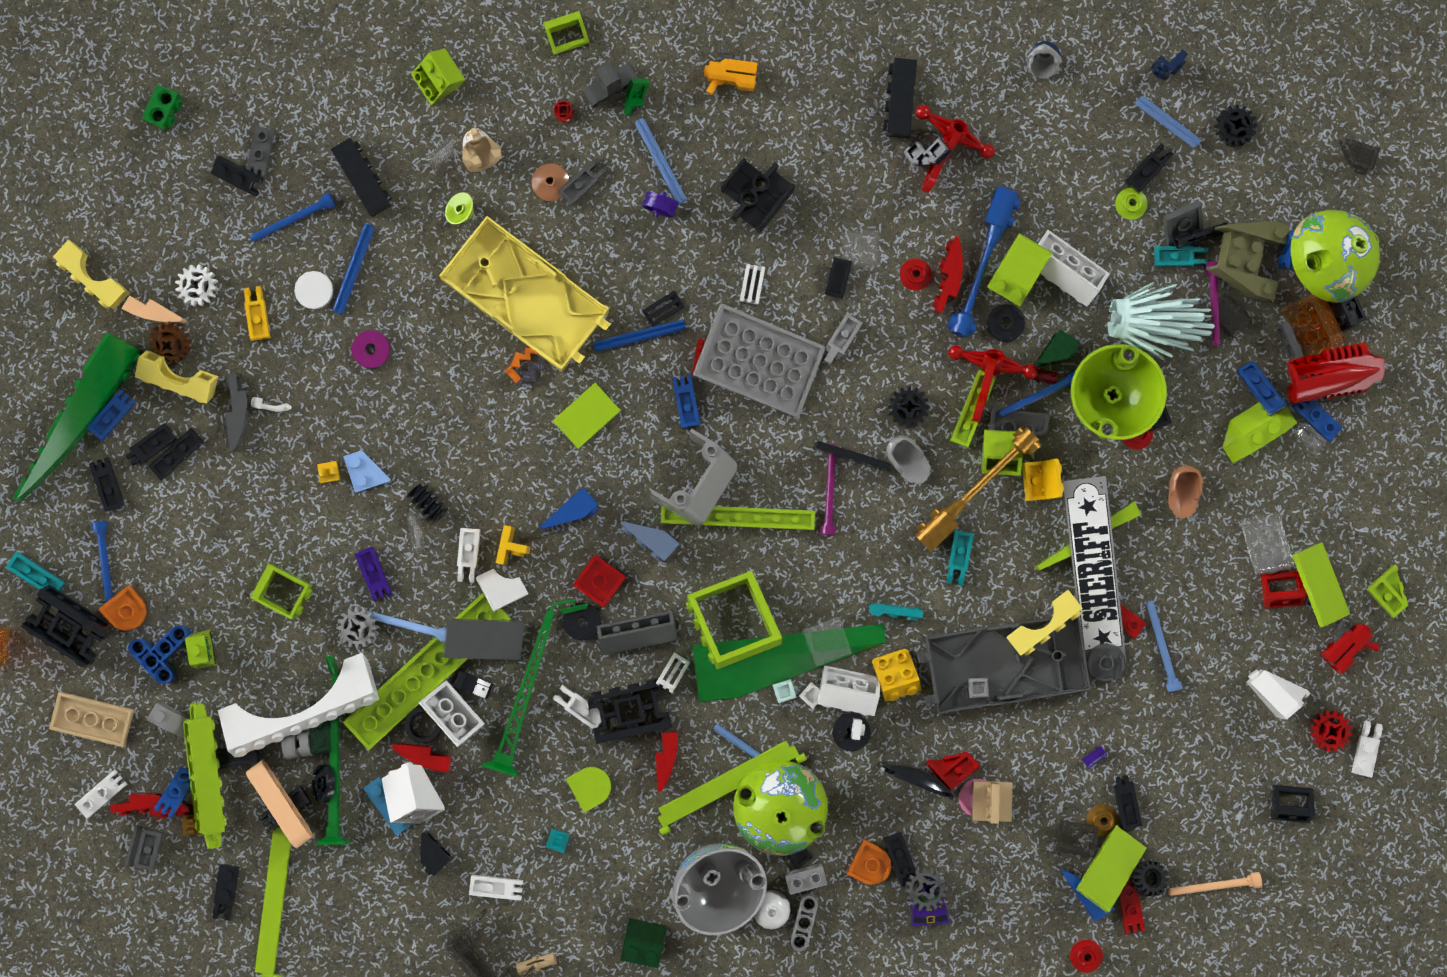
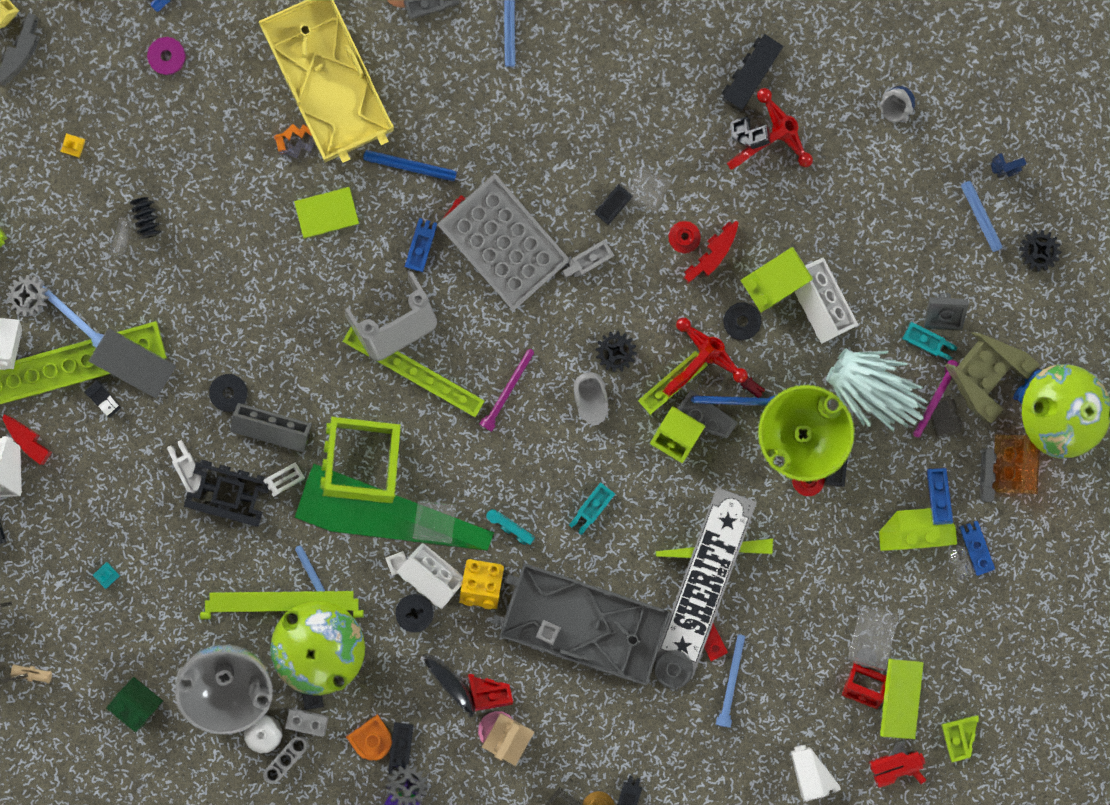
camera: 30 degrees right, 0 degrees up
(257, 403) = (42, 51): white piece -> none
(364, 471) = (104, 161): light blue wing -> none
(373, 573) = (65, 255): dark purple hinge -> none
(412, 734) = (27, 415): black tyre -> none
(451, 713) = (70, 414): white slope -> none
(468, 552) = (159, 280): white hinge -> none
(495, 887) = (29, 587): white hinge -> none
(500, 590) = (169, 328): white tile -> none
(502, 761) = (94, 481): green piece -> none
(507, 545) = (195, 293): yellow bracket -> none
(574, 509) = (275, 289): blue slope -> none
(590, 787) = (159, 542): lime tile -> none
(599, 581) = (261, 364): red plate -> none
(657, 540) = (331, 357): sand blue slope -> none
(659, 302) = (444, 152): black tile -> none
(660, 204) = (487, 57): dark purple wheel -> none
(666, 758) = (239, 552): red slope -> none
(755, 268) = (544, 158): white tile -> none
(767, 200) = (583, 104): black piece -> none
(784, 691) = (375, 547): light aqua tile -> none
(851, 456) = (541, 368): black tile -> none
(857, 729) = (420, 612): white plate -> none
(944, 520) = (595, 468): pearl gold bar -> none
(999, 214) = (782, 225): blue bar -> none
(1042, 480) = (700, 477): yellow bracket -> none
(1059, 349) = (774, 369): dark green slope -> none
(1064, 608) = (660, 600): light yellow arch -> none
(1095, 756) = (620, 747): dark purple pin -> none
(1125, 209) = (907, 280): lime piece -> none
(1147, 170) = (940, 249): black hinge -> none
(1185, 491) = (823, 553): nougat hair -> none
(1194, 237) = (950, 331): black pin -> none
(1342, 371) = (1015, 518): red connector -> none
(1348, 313) = (1053, 469): black bracket -> none

